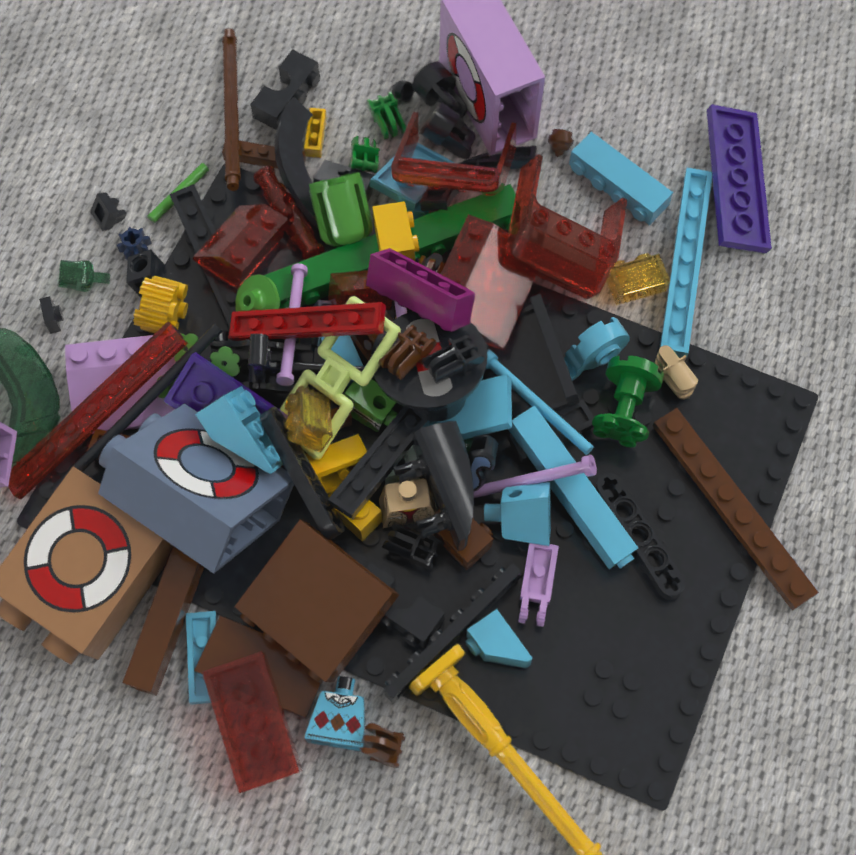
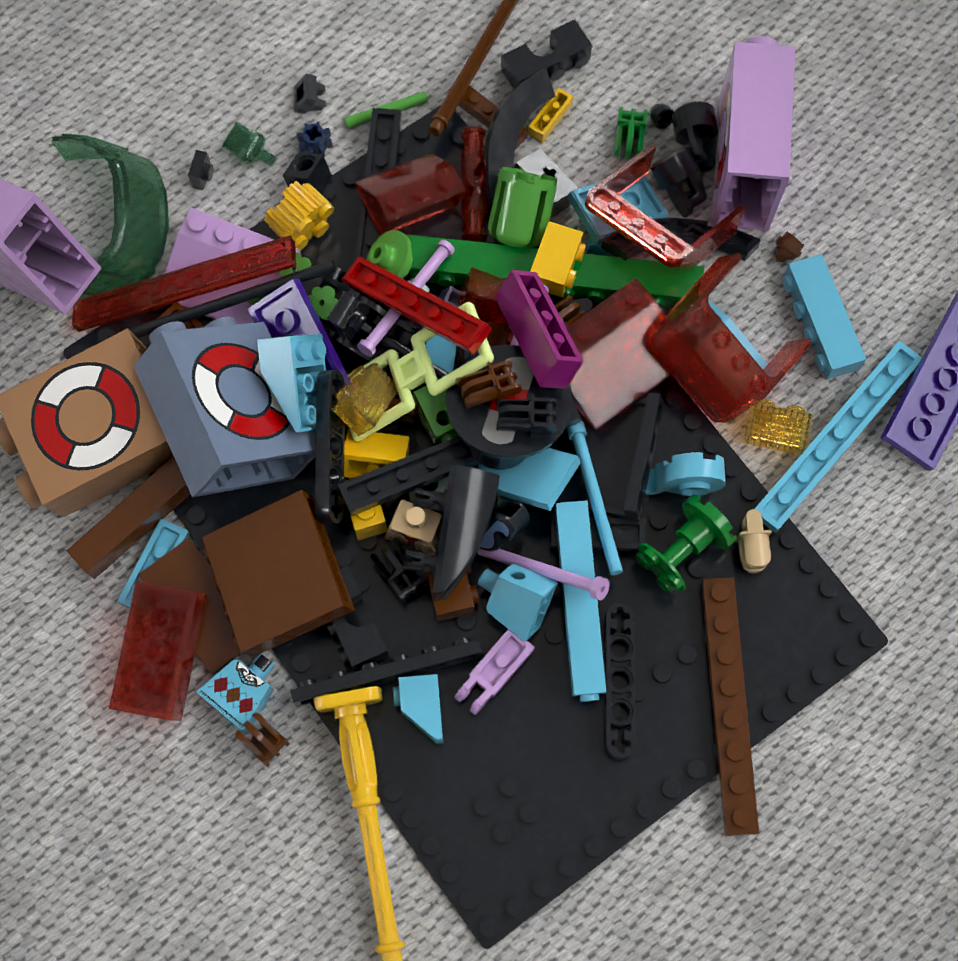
camera: 30 degrees right, 5 degrees up
(364, 156) = (580, 164): green arm -> none

